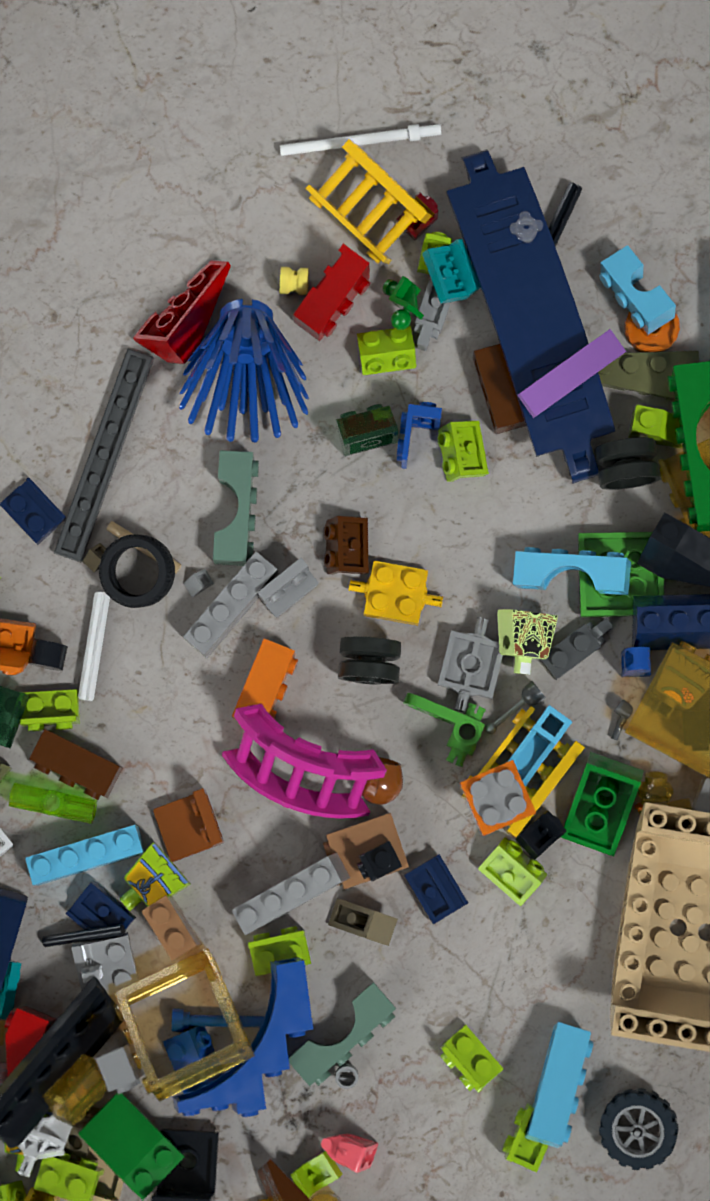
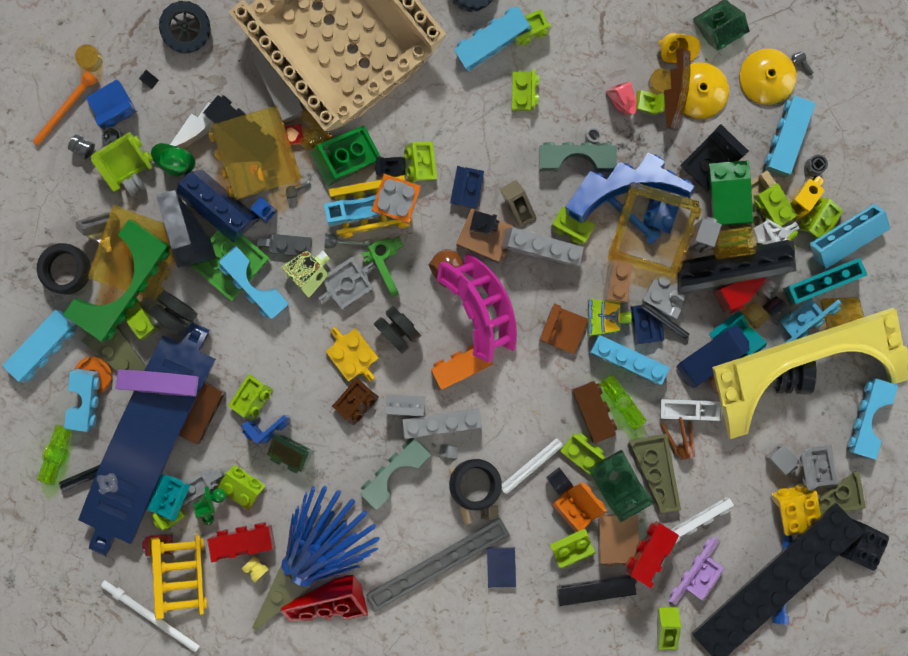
camera: 135 degrees left, 5 degrees up
(244, 276) = (281, 593): none -> olive wing
(612, 210) = (54, 455): none -> clear neon green piece
(681, 777) = (294, 133): none -> tile

